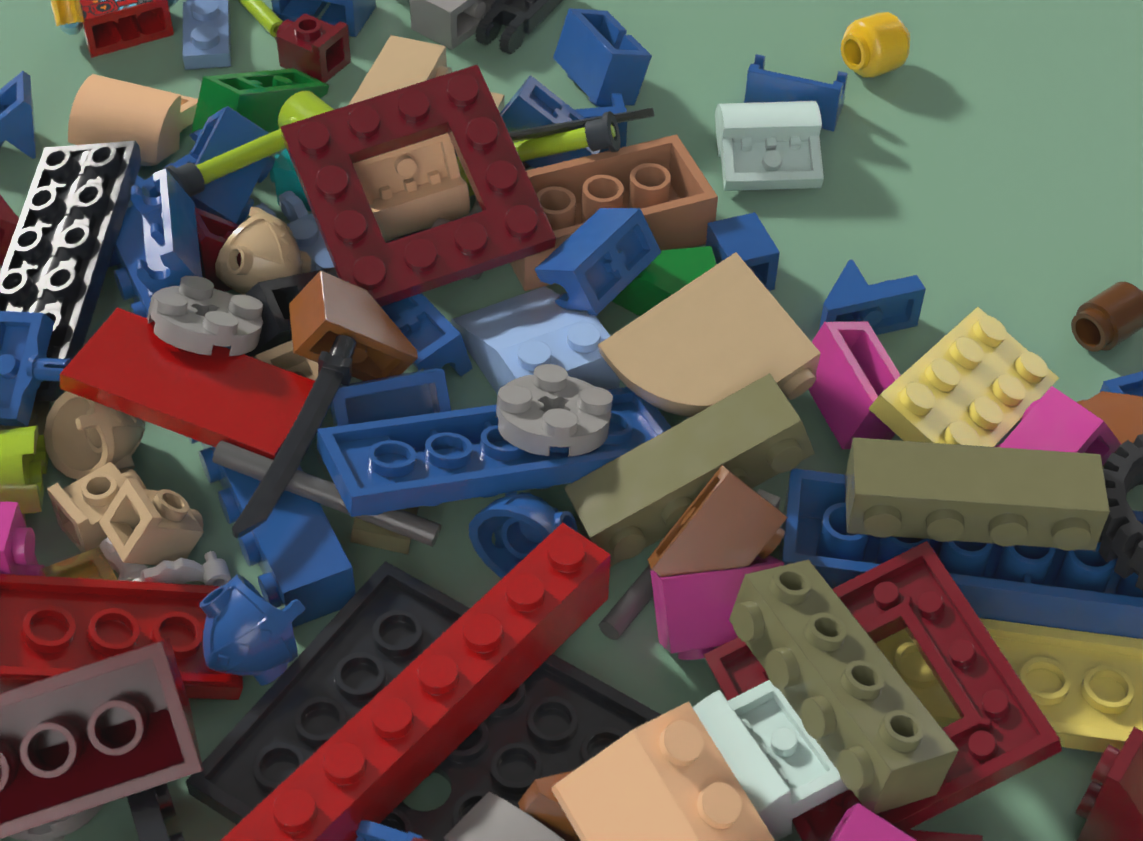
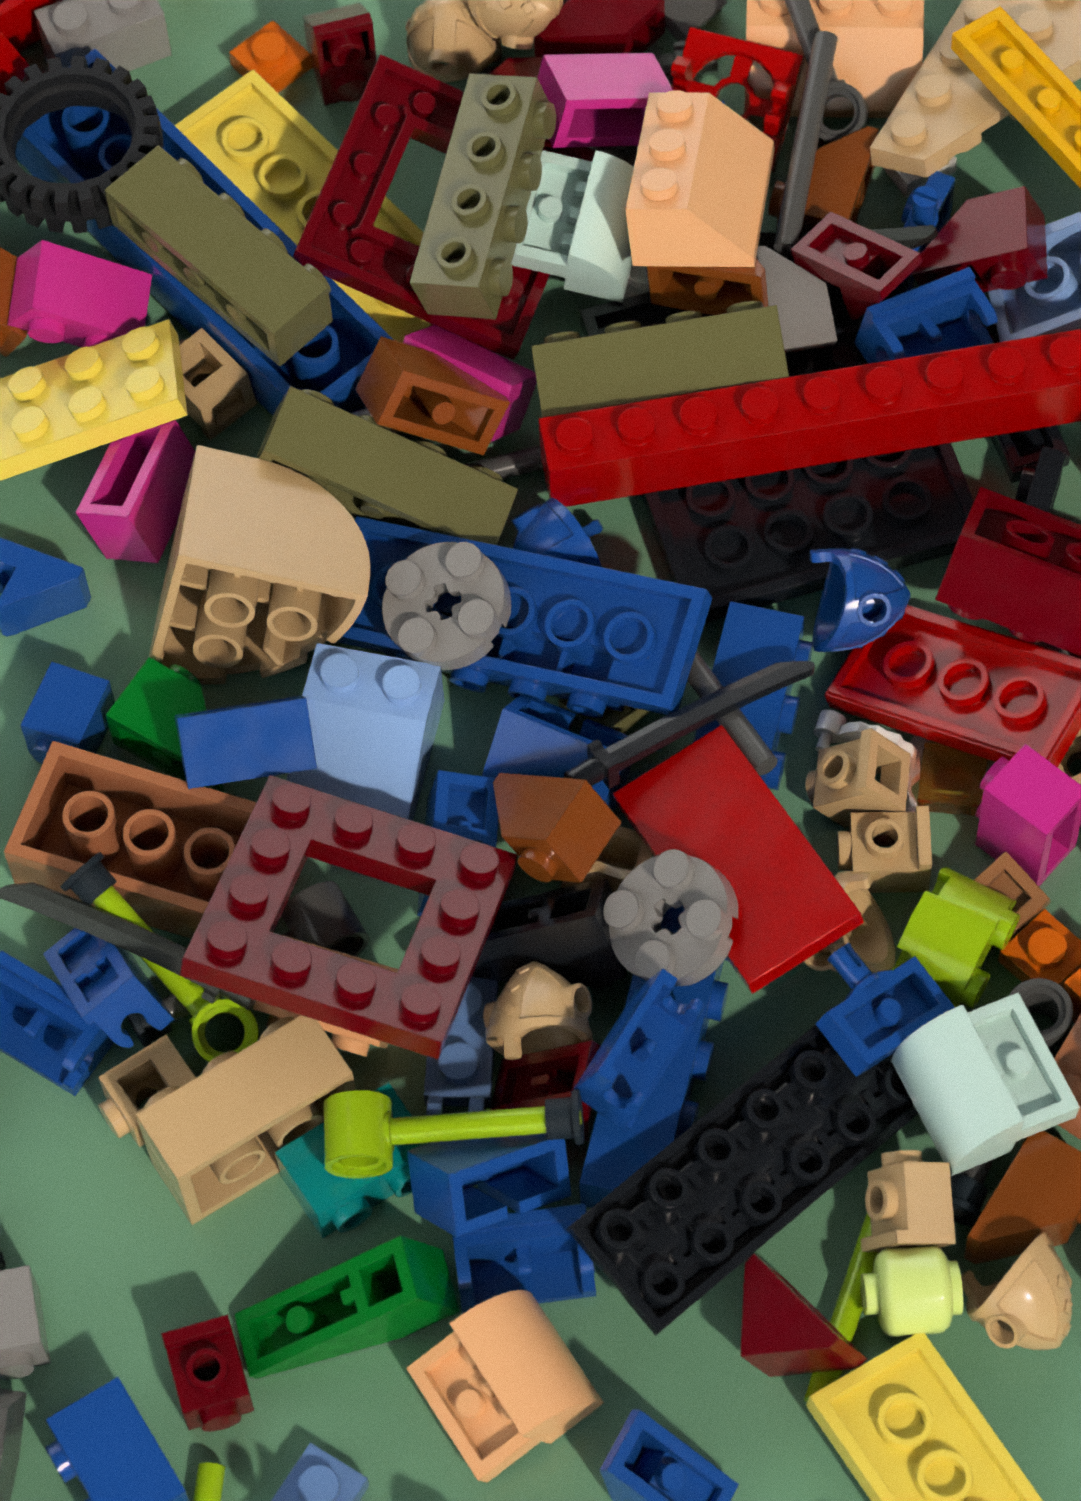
camera: 135 degrees left, 15 degrees up
(559, 688) = (659, 360): none -> olive brick

